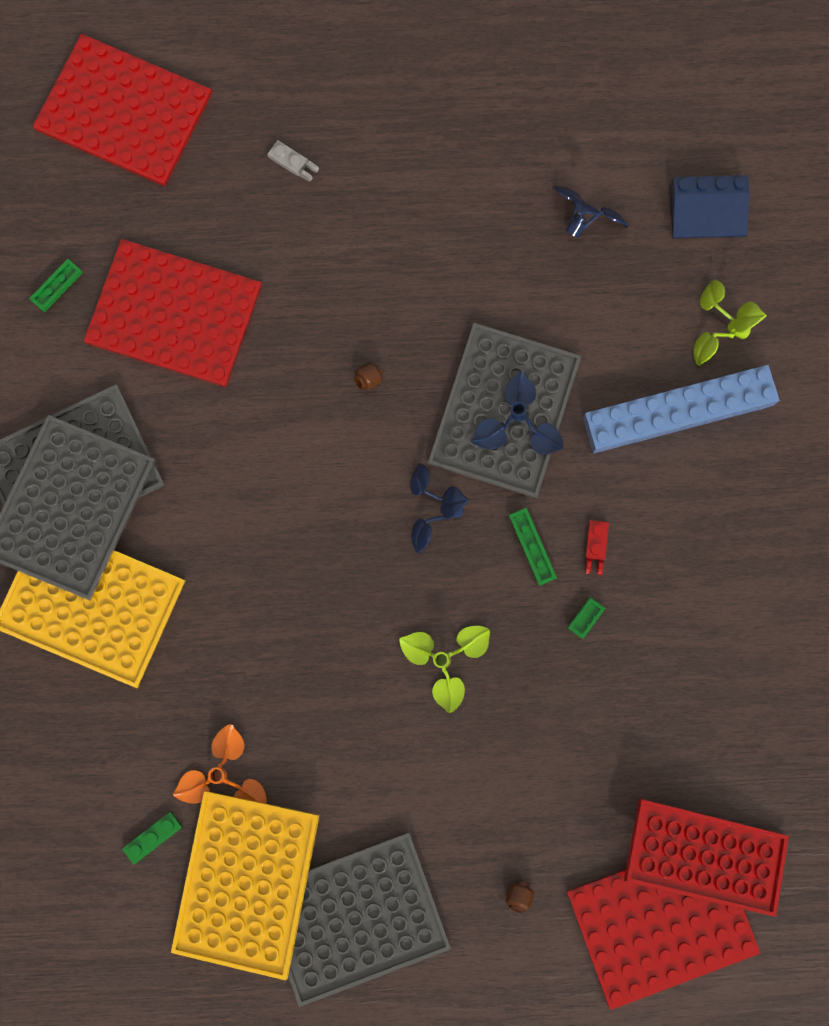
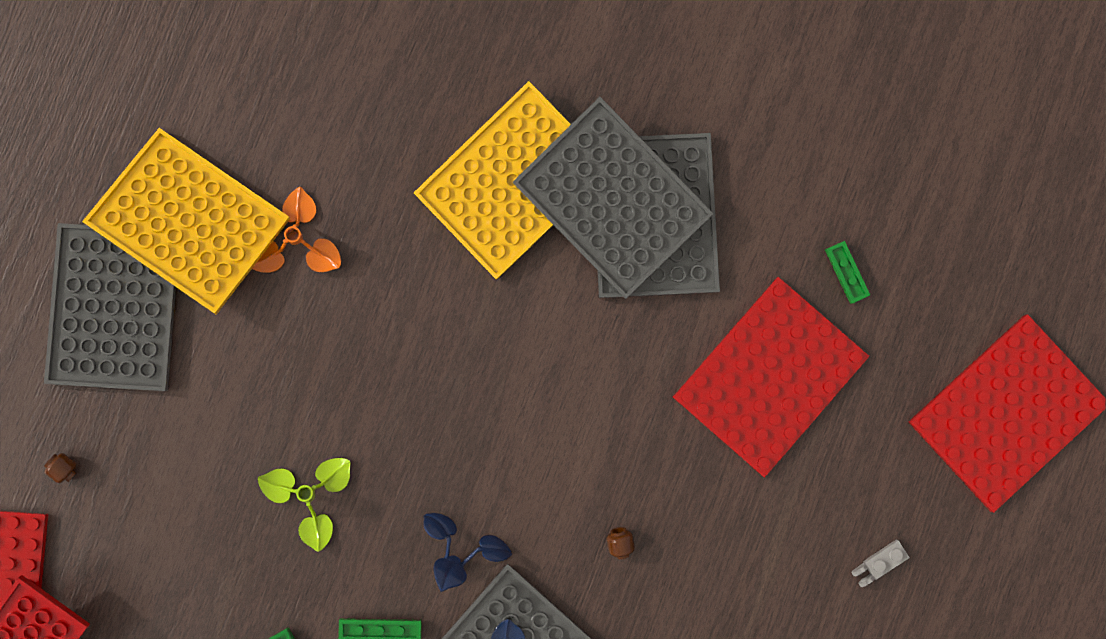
camera: 110 degrees right, 5 degrees up
(152, 838) = (270, 152): green plate -> none

